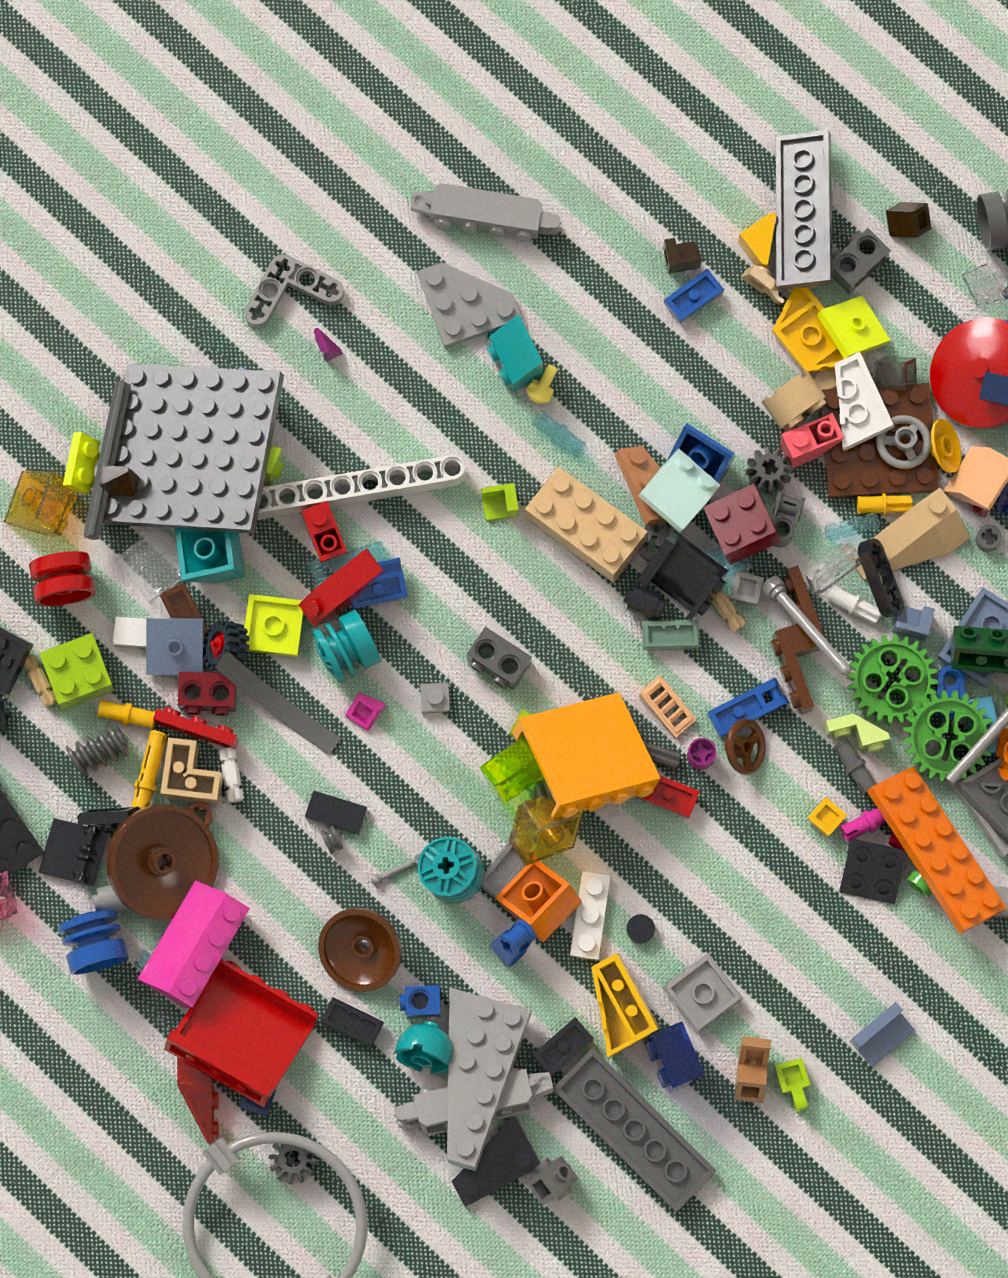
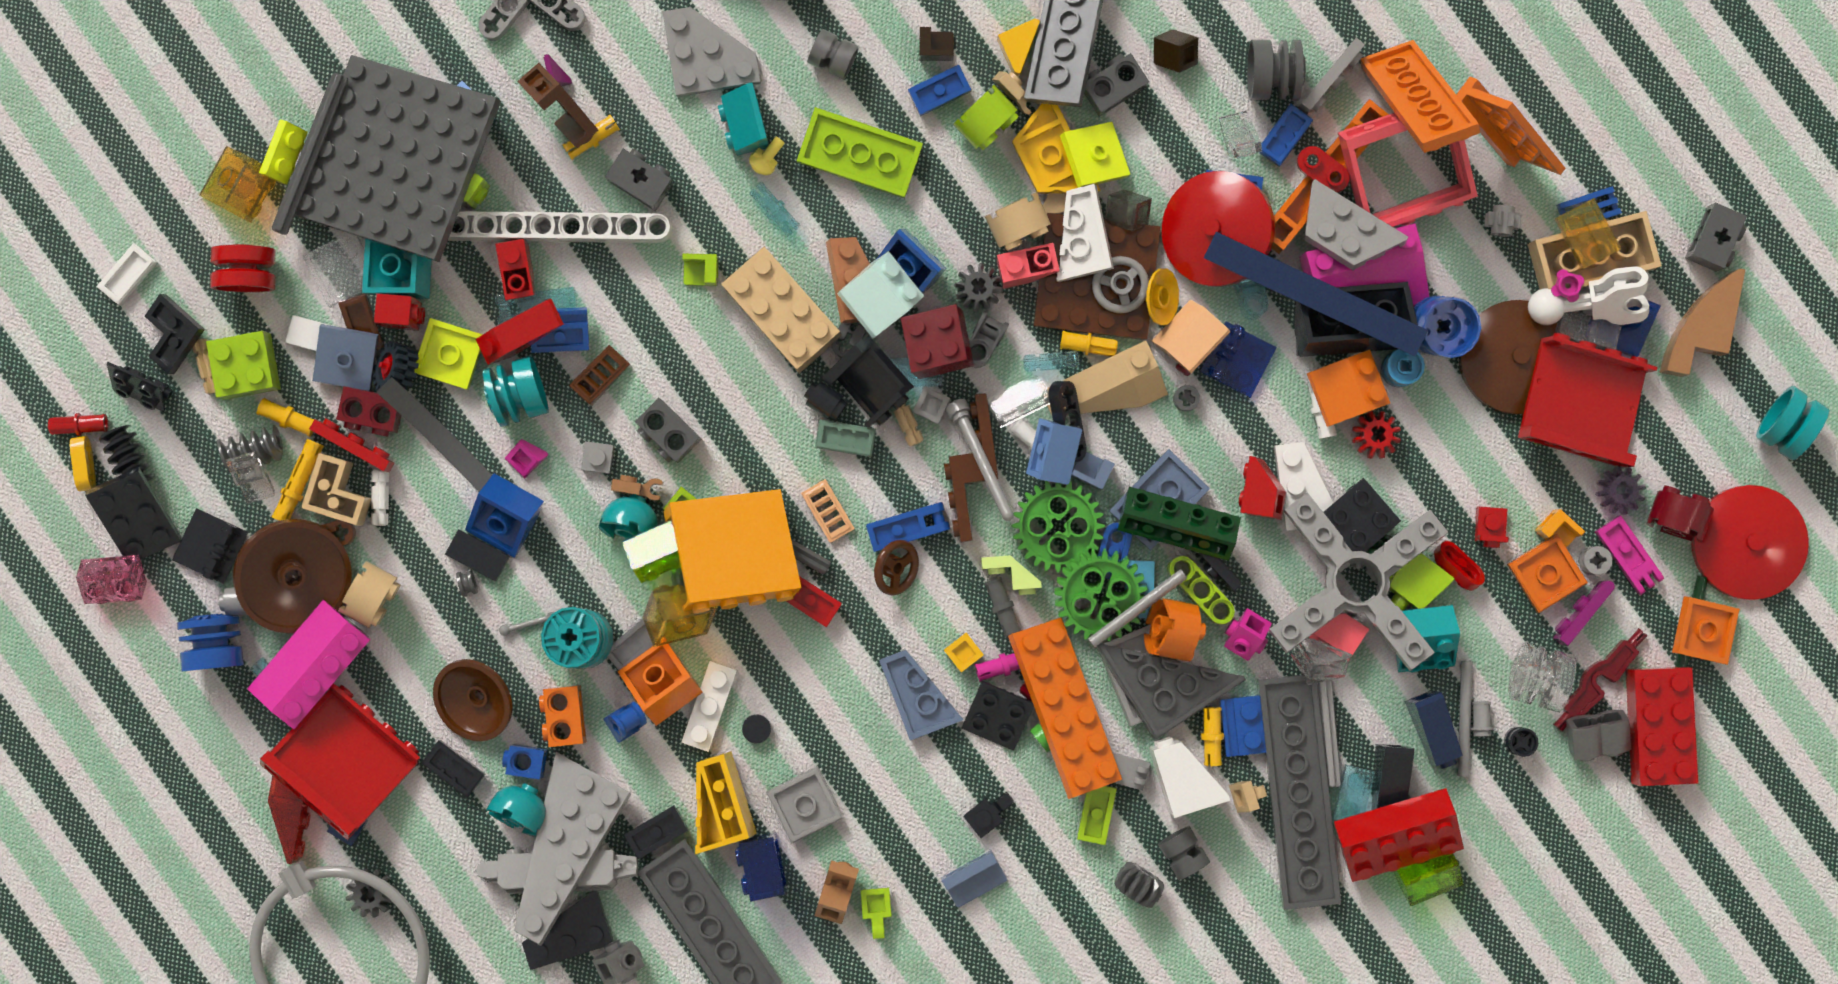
camera: 10 degrees right, 10 degrees up
(104, 775) = (251, 477): none -> clear slope
(106, 816) = (246, 519): black plate -> none
(119, 480) = (315, 179): dark brown slope -> none
(220, 592) = (399, 312): none -> red brick
(240, 866) = (368, 595): none -> tan brick
(329, 356) = (546, 91): none -> reddish brown panel
(355, 768) = (503, 515): none -> blue slope
(371, 398) = (597, 137): none -> yellow pin
(408, 637) = (592, 368): none -> reddish brown slope
(434, 439) = (623, 177): none -> dark grey brick
(457, 948) = (571, 715): none -> orange brick
(473, 719) = (629, 486): none -> medium nougat plate
(475, 747) = (627, 517): none -> teal cylinder
(586, 280) = (833, 54): none -> flat silver wheel
(630, 366) = (859, 152): none -> lime plate
(704, 750) = (851, 565): magenta wheel -> none
(744, 310) = (986, 117): none -> lime brick
(789, 868) = (916, 696): none -> sand blue wing
(874, 607) = (1053, 451): none -> medium blue panel
(880, 970) = (986, 815): none -> black plate
(988, 949) = (1096, 815): none -> lime plate

